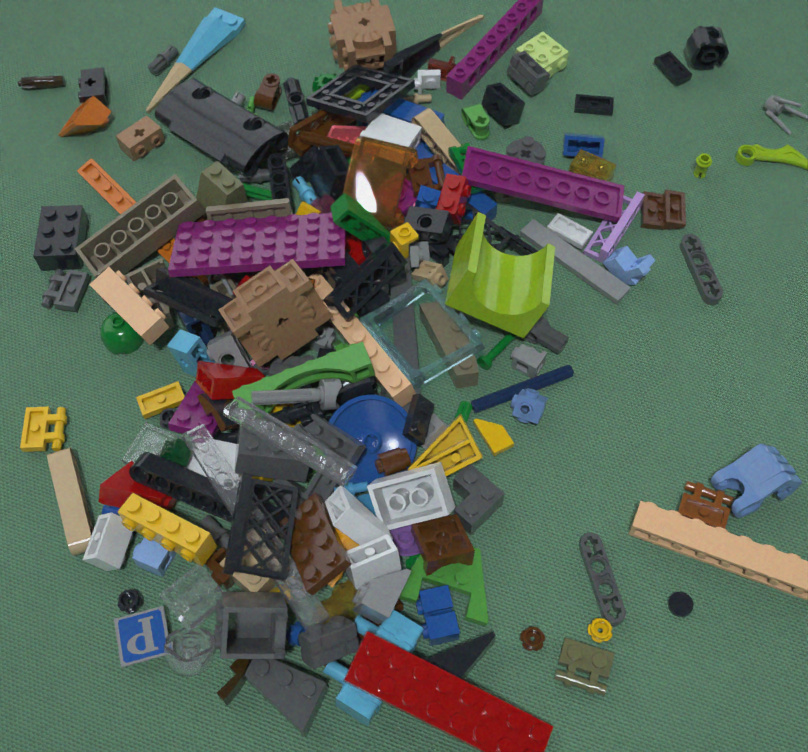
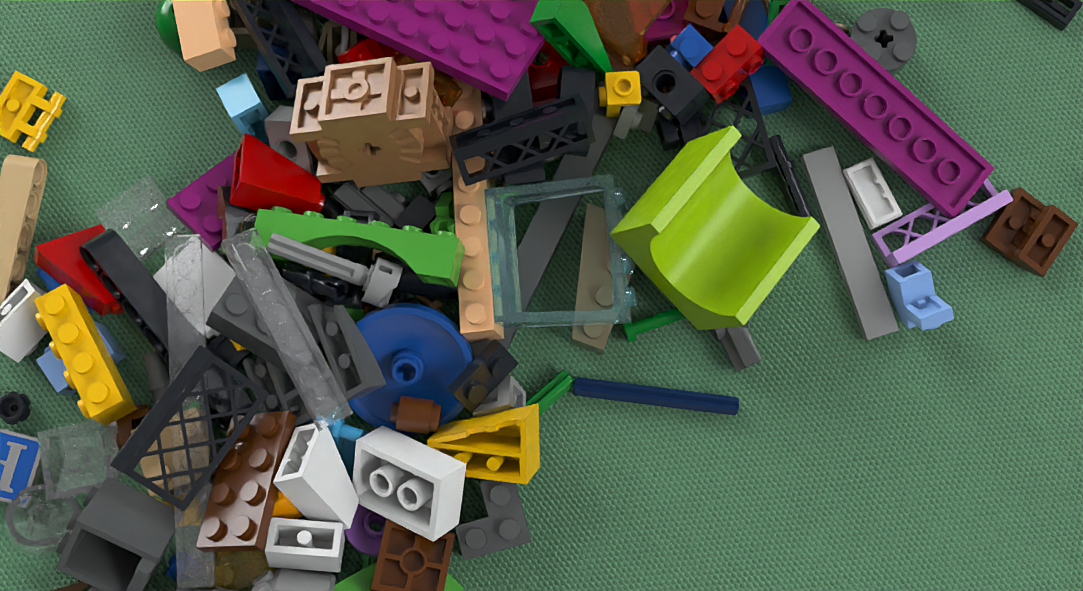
camera: 30 degrees right, 20 degrees up
(160, 399) = (186, 151): yellow plate -> none
(165, 416) = (179, 178): black plate -> none
(176, 452) = (151, 247): dark green brick -> none
(432, 272) = (636, 157): tan bracket -> none
(494, 436) = (576, 443): yellow tile -> none
(528, 360) = (686, 361): light grey brick -> none
(528, 406) = (644, 431): medium blue brick -> none
(591, 143) = (983, 62): blue brick -> none
(592, 166) = (967, 111): clear yellow brick -> none
(704, 268) = (1013, 353): dark grey beam -> none

